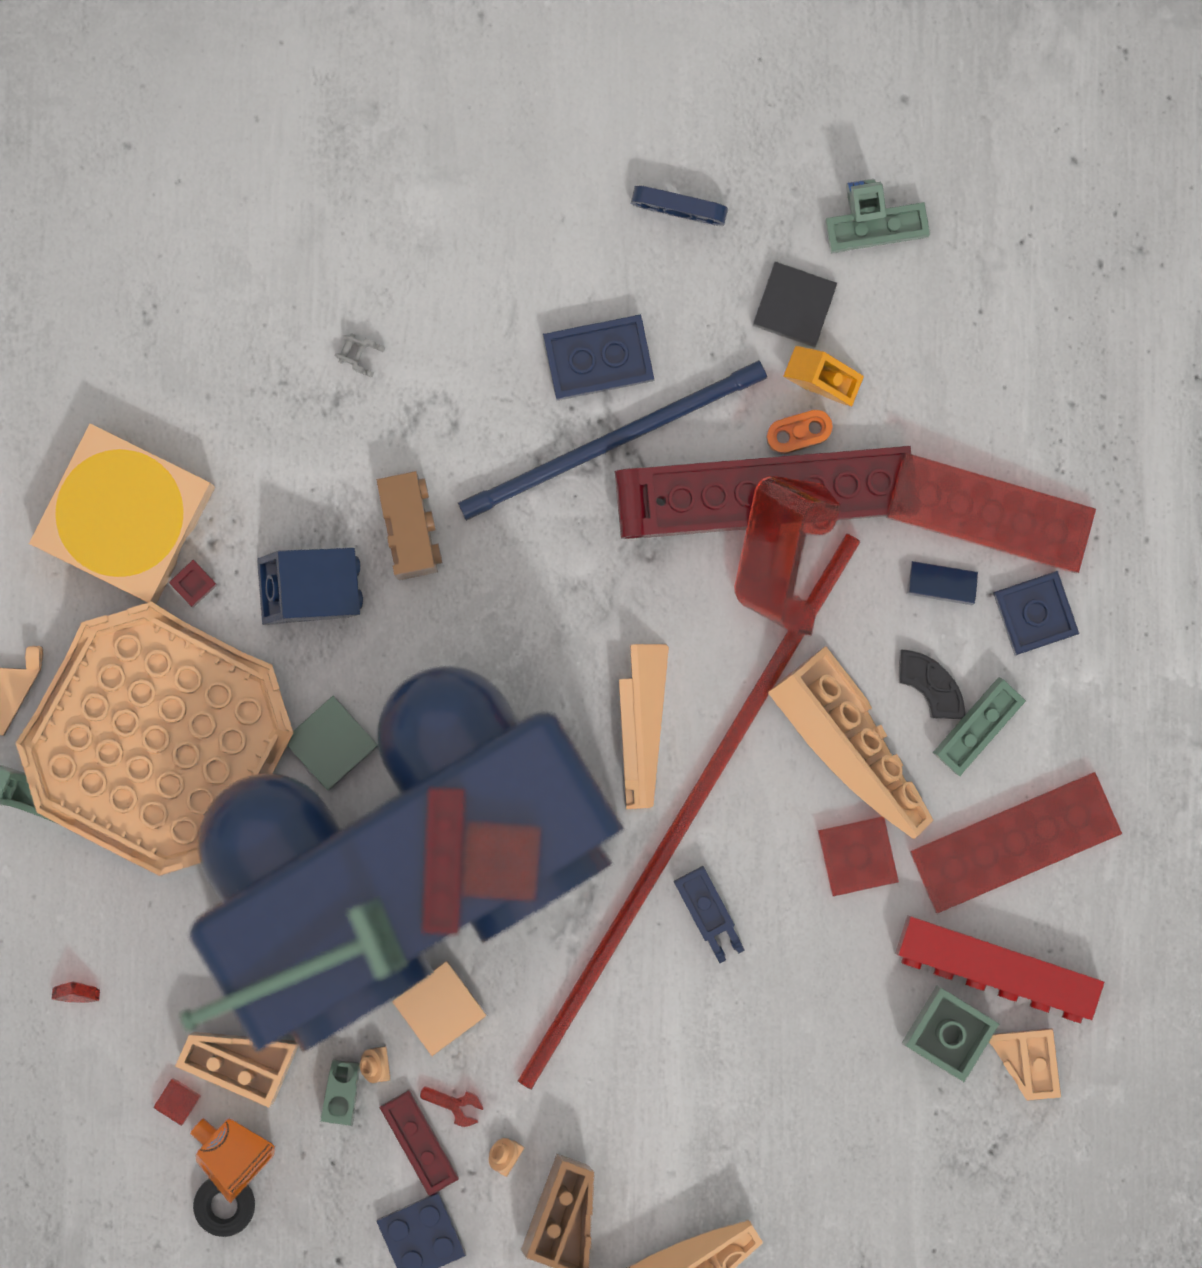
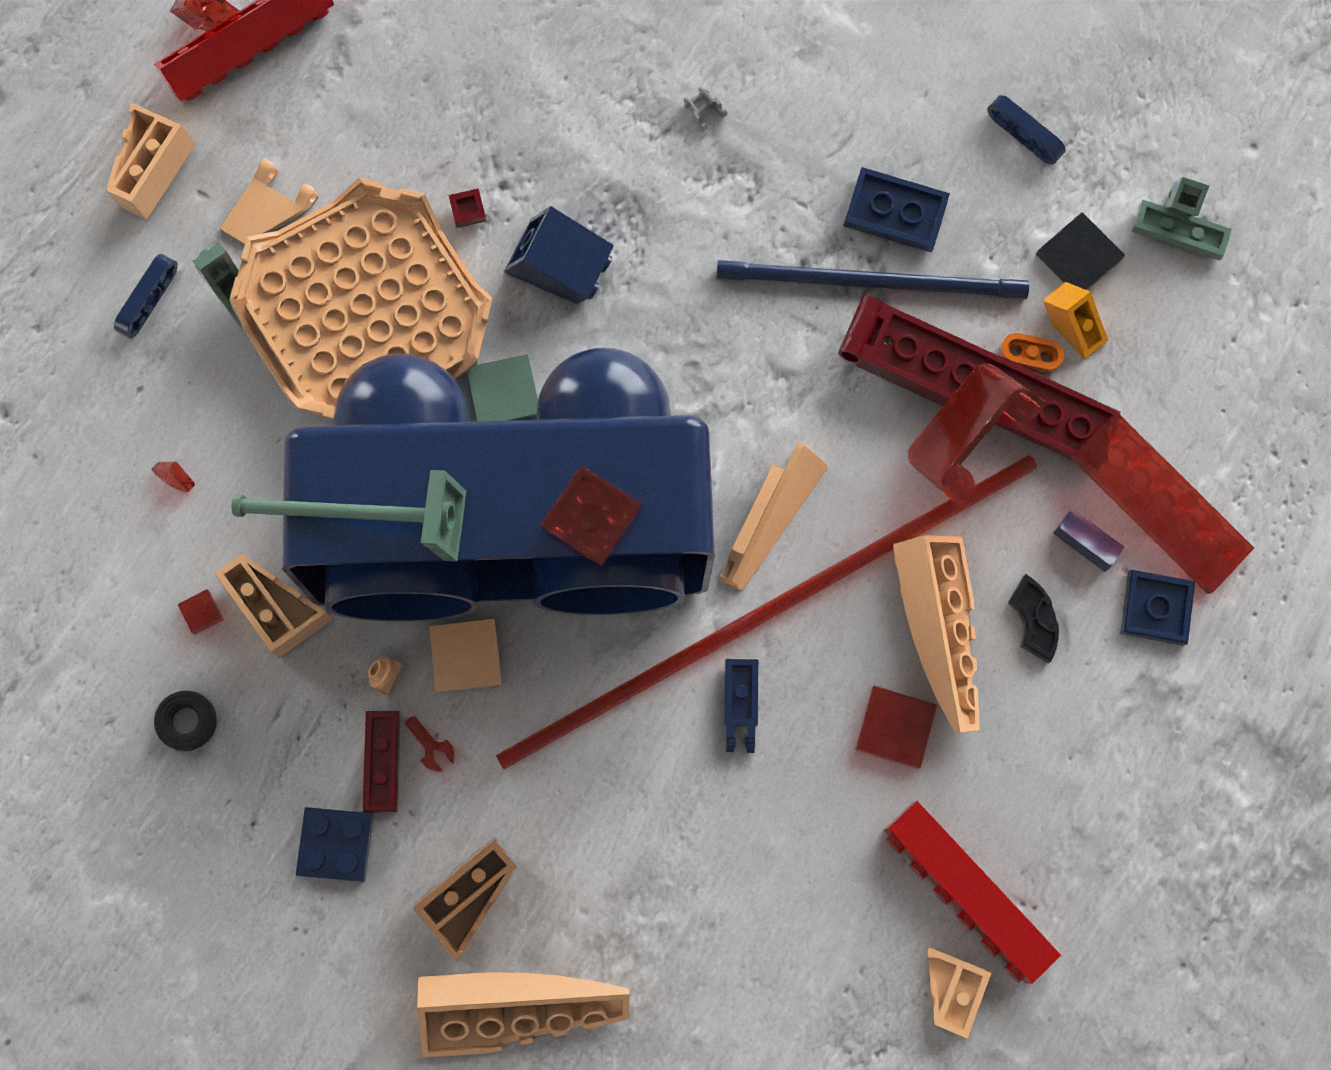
camera: 25 degrees right, 10 degrees down
(122, 514) = (443, 124): yellow tile -> none
(231, 1155) = (216, 679): orange torso -> none
(341, 1093) = (339, 681): sand green leg -> none
(408, 525) = (667, 255): medium nougat wedge -> none
(443, 861) = (540, 490): dark red tile -> none
(504, 1155) = (447, 813): light nougat plate -> none
(950, 1033) = (898, 924): sand green brick -> none
(979, 726) = (1060, 673): sand green plate -> none
(1015, 842) = (1040, 791): clear red plate -> none

